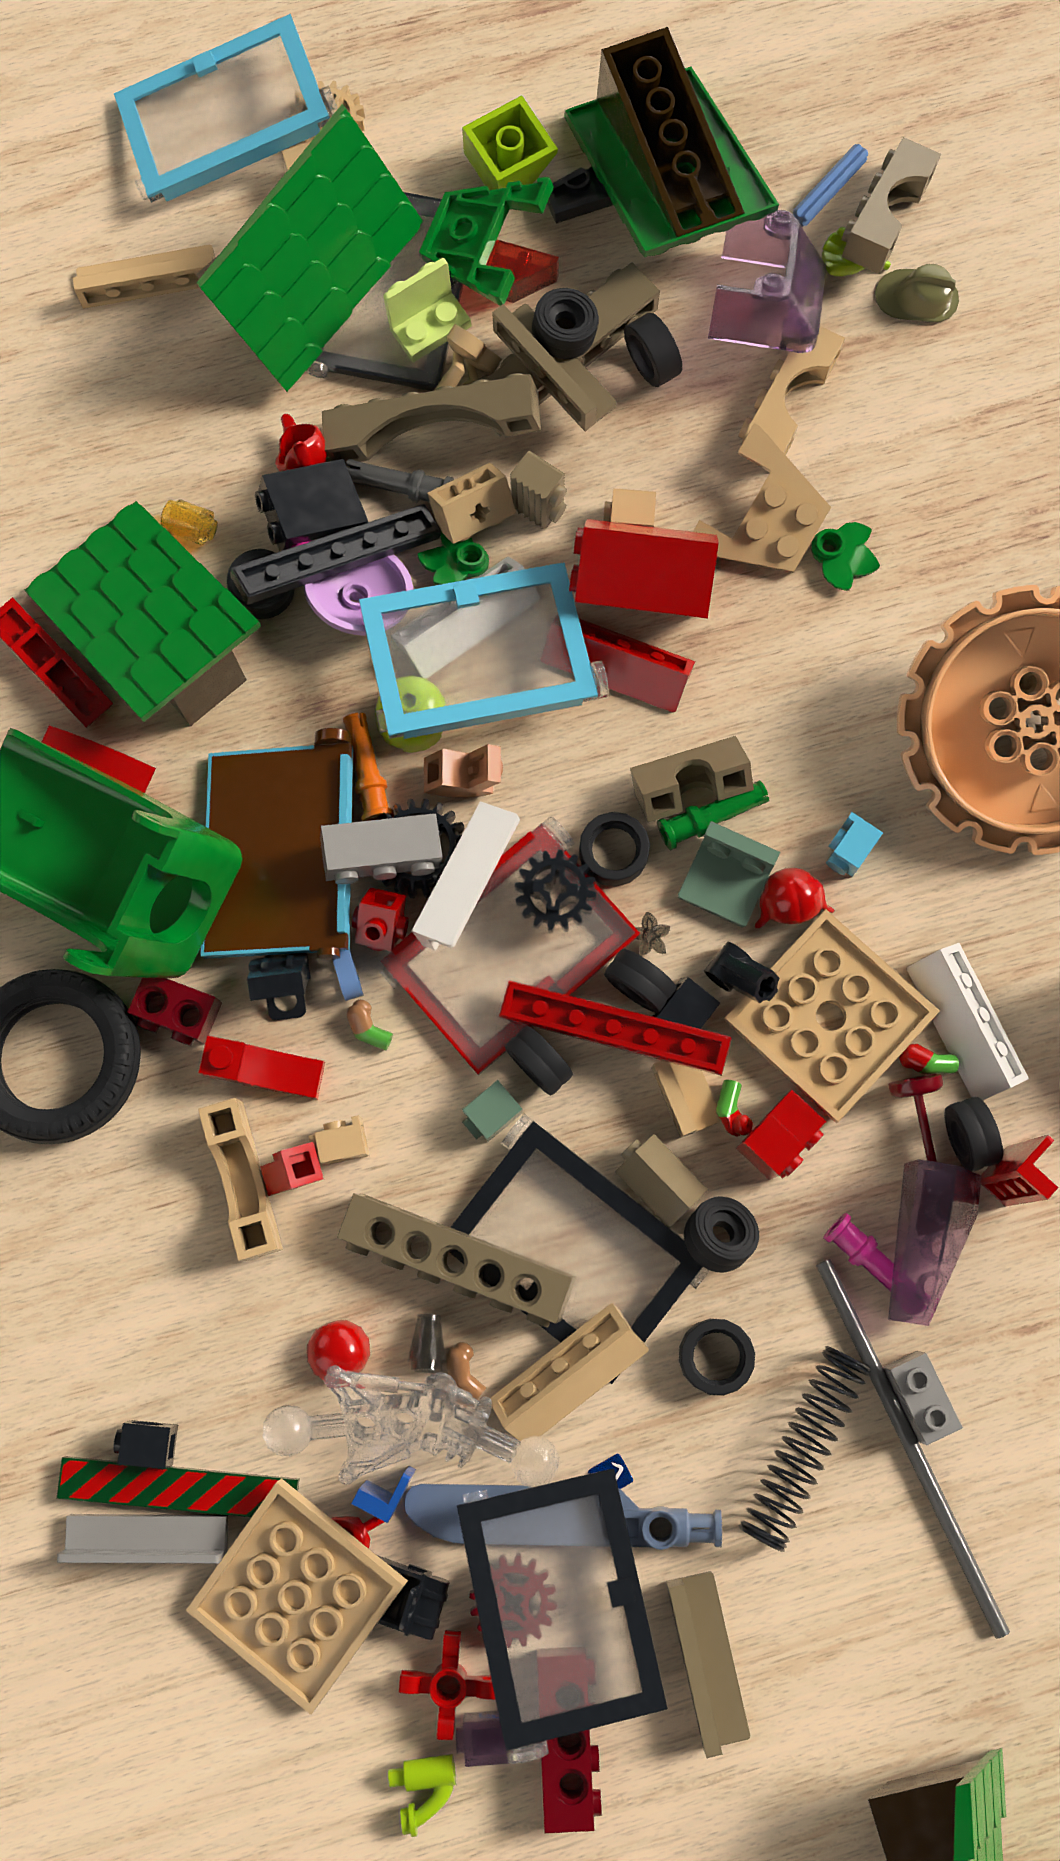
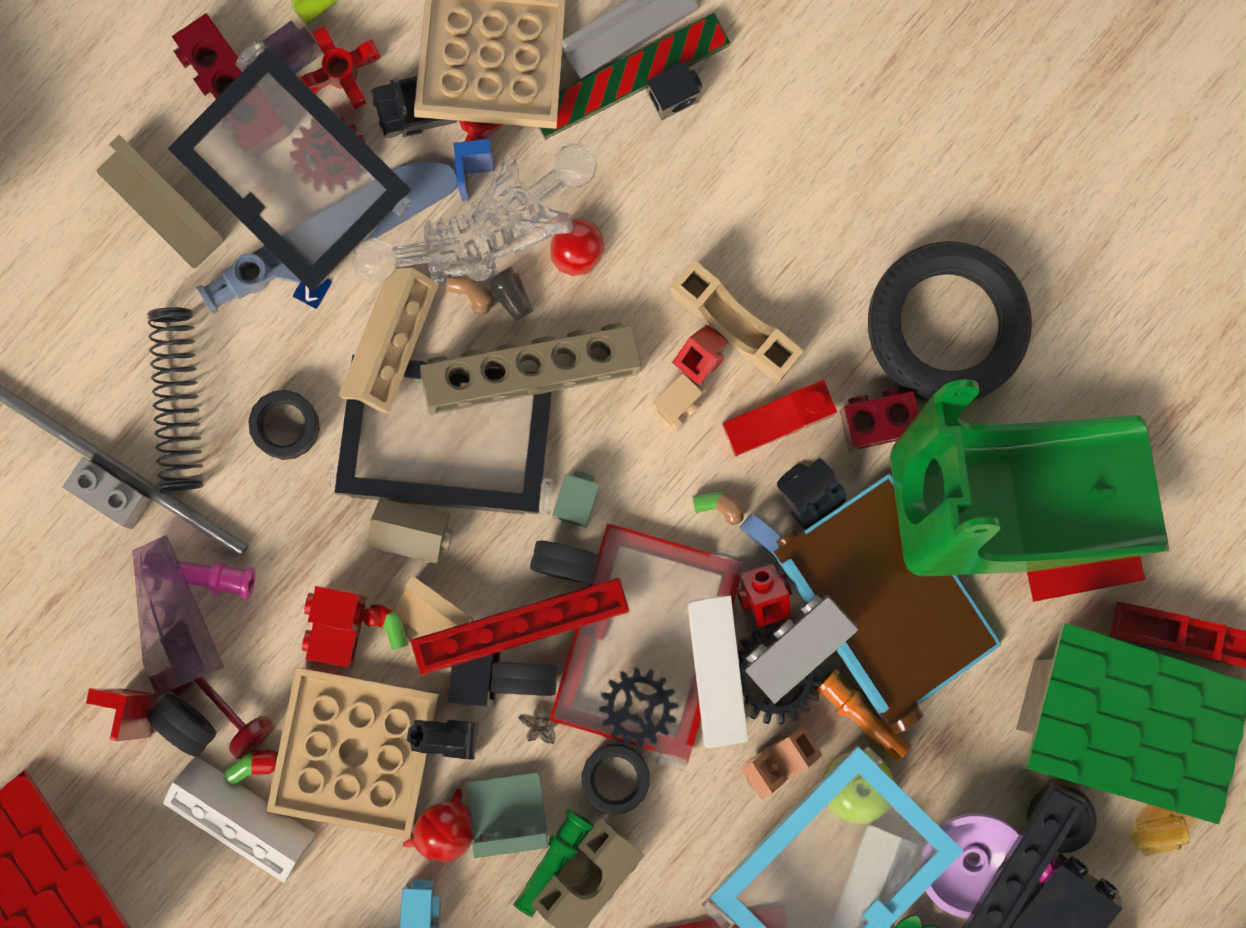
camera: 140 degrees right, 5 degrees up
(710, 1251) = (332, 537): black tyre -> none

